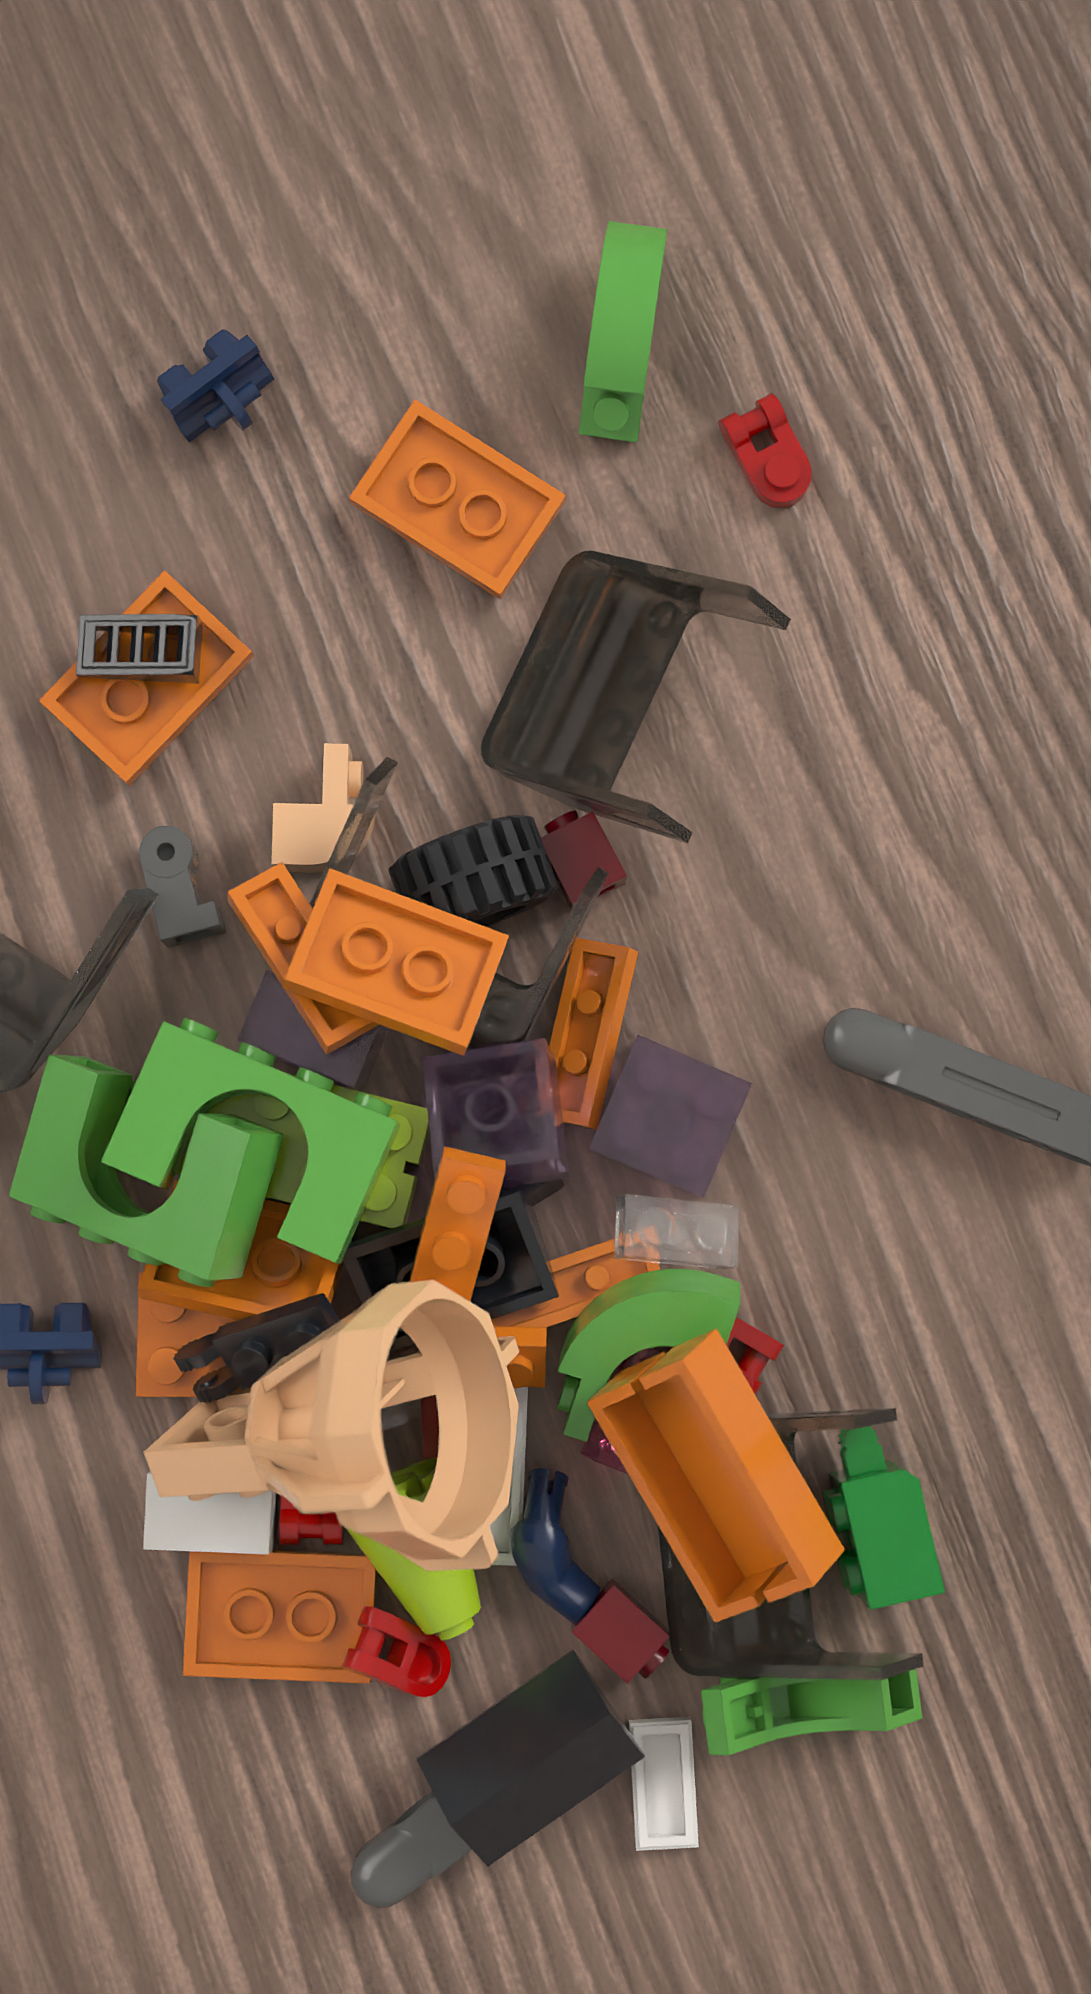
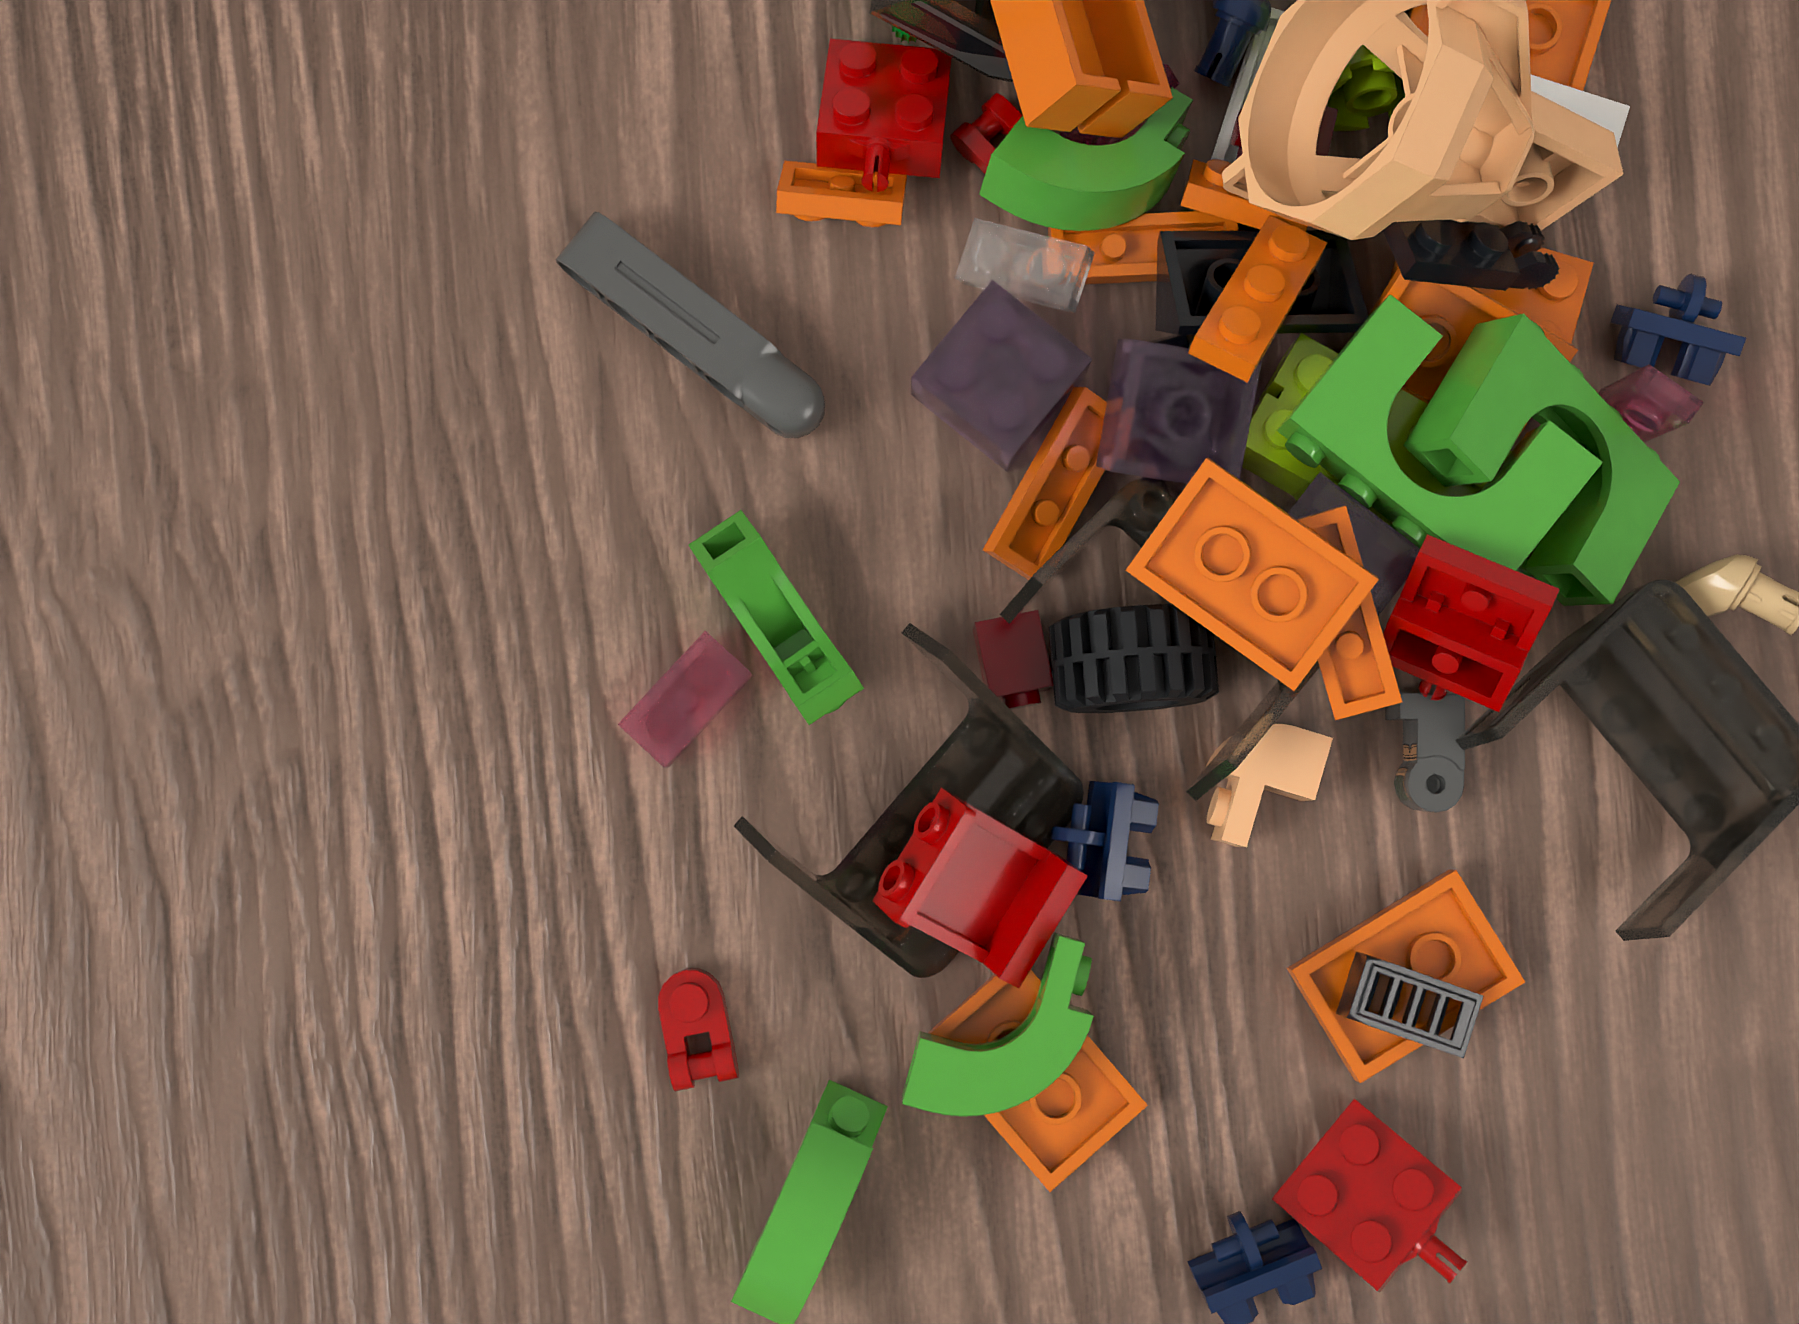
camera: 165 degrees left, 0 degrees up
(61, 1252) = (1651, 402): none -> clear pink plate
(127, 474) = (1372, 1199): none -> red plate
(189, 980) = (1465, 623): none -> red plate
(457, 720) = (1101, 837): none -> dark blue hips
(497, 477) = (1003, 1073): none -> bright green arch
(555, 638) = (979, 887): none -> red panel
(807, 831) = (776, 617): none -> bright green arch
(856, 1344) = (883, 110): none -> red plate
(868, 738) = (685, 700): none -> clear pink plate
(870, 1255) = (835, 193): none -> orange plate

